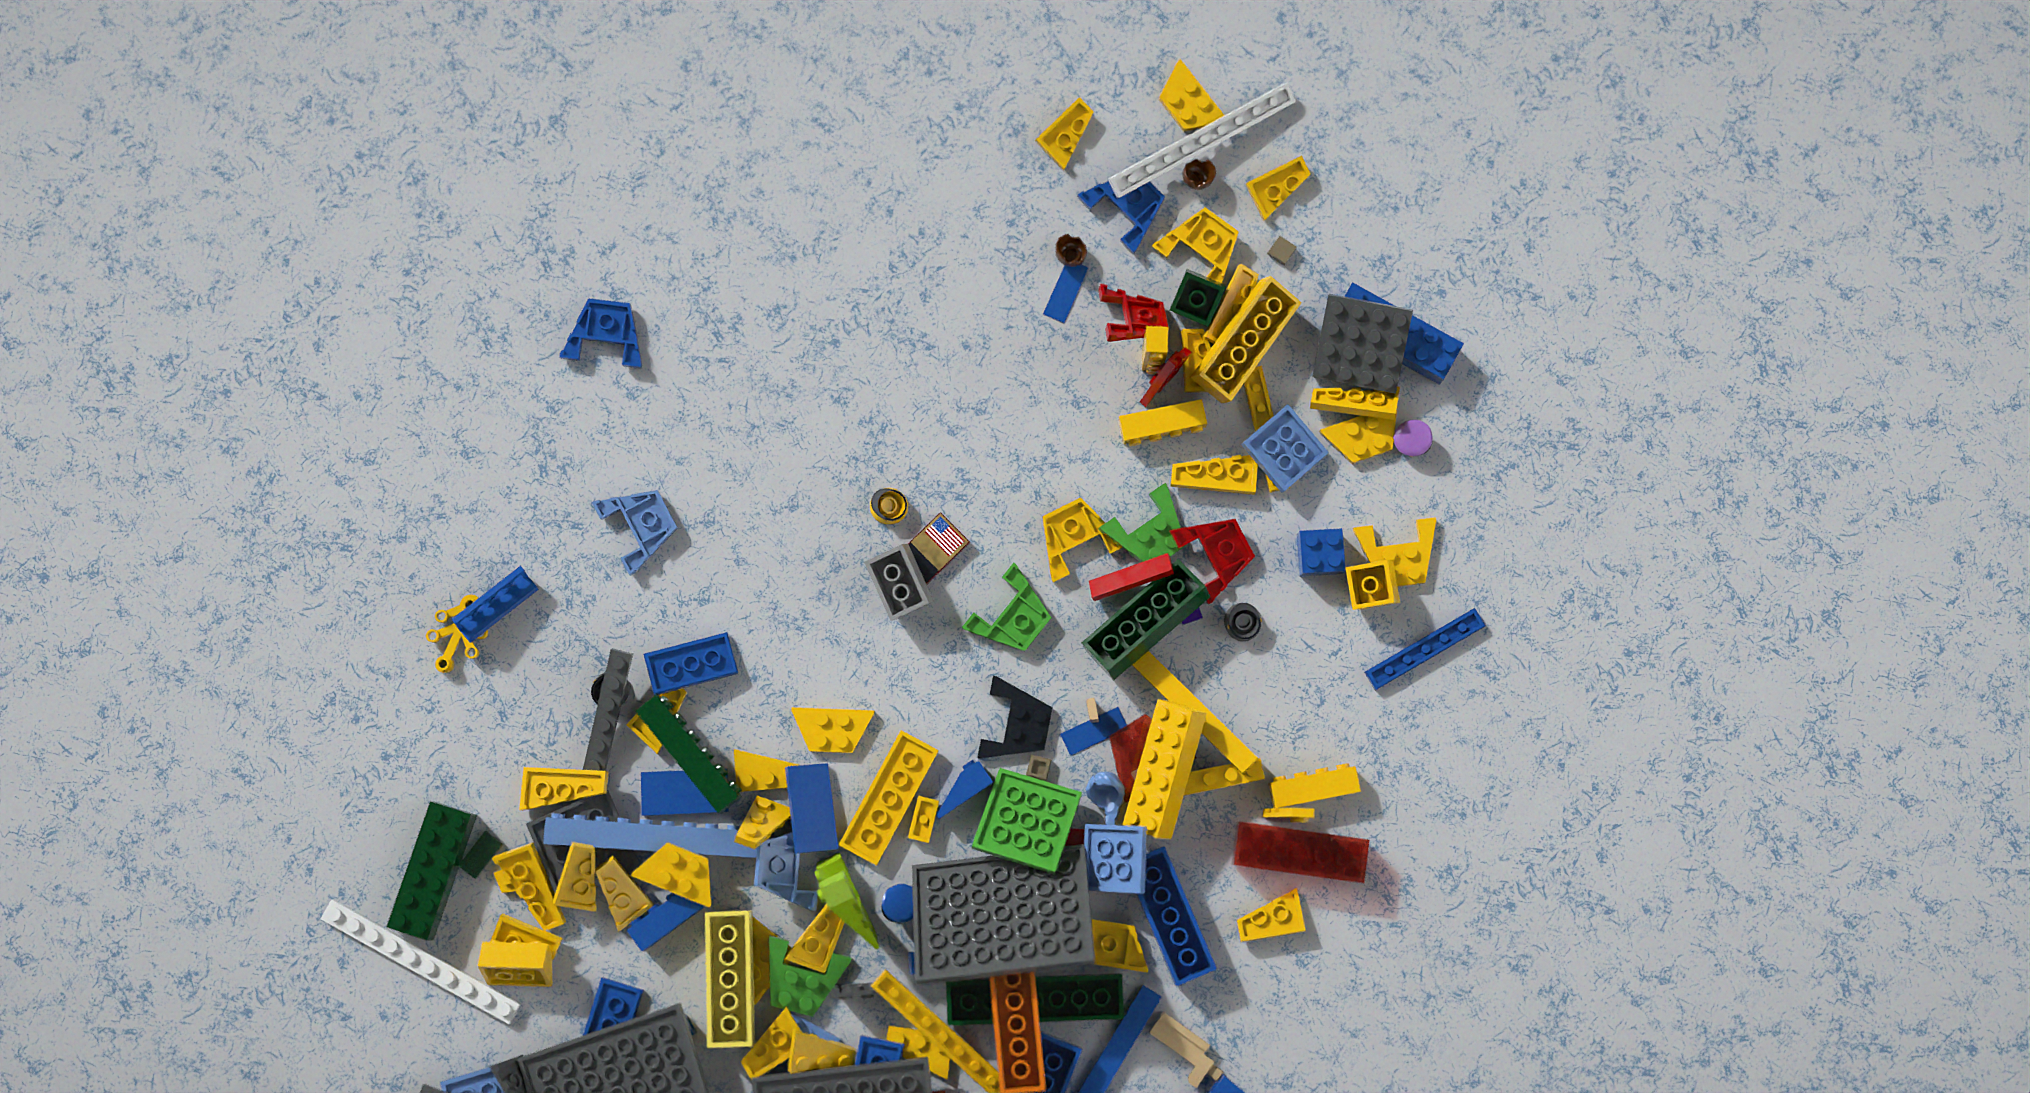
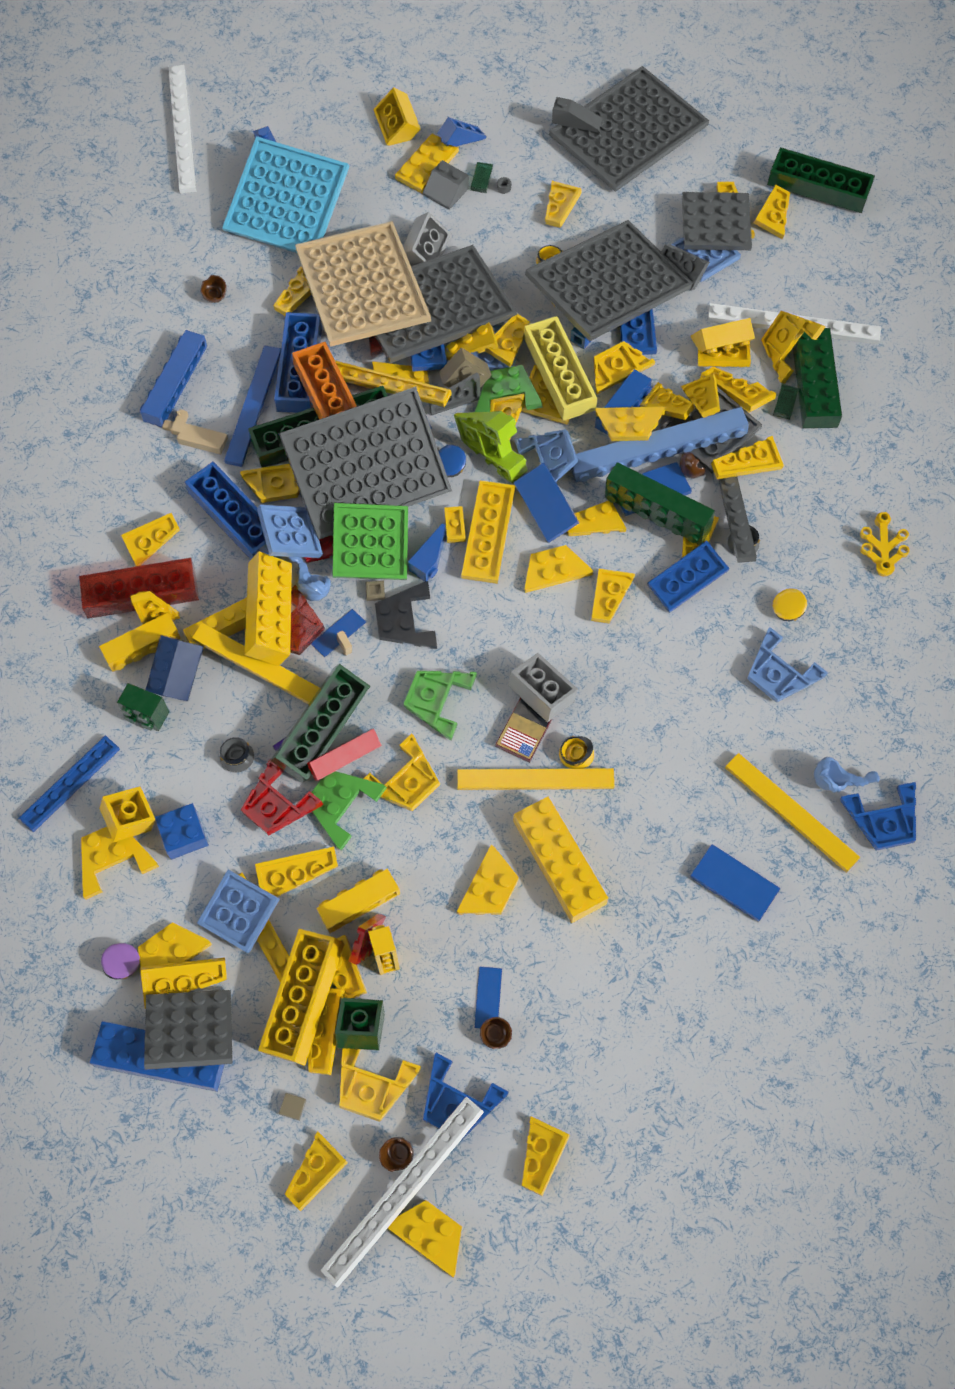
camera: 160 degrees right, 15 degrees down
(447, 935) = (783, 336): none -> yellow wing
(495, 604) = (865, 569): blue fence -> none
(596, 592) = (789, 604): none -> yellow piece
(630, 800) = (689, 466): none -> reddish brown hair
(639, 390) = (833, 777): none -> medium blue hair
(657, 969) = (617, 364): none -> yellow wing
(696, 371) = (792, 812): none -> yellow tile
(761, 821) = (580, 481): yellow wing -> none
(784, 319) = (735, 882): none -> blue tile
(784, 674) = (609, 593): none -> yellow wing
(842, 1019) = (462, 366): none -> dark tan brick
(941, 491) = (535, 779): none -> yellow tile
(948, 396) = (560, 859): none -> yellow brick
(1027, 395) = (490, 886): none -> yellow wing
(1137, 313) = (406, 989): red wing -> none
(1284, 736) = (174, 668): none -> dark blue slope
(1329, 700) = (143, 707): none -> dark green brick

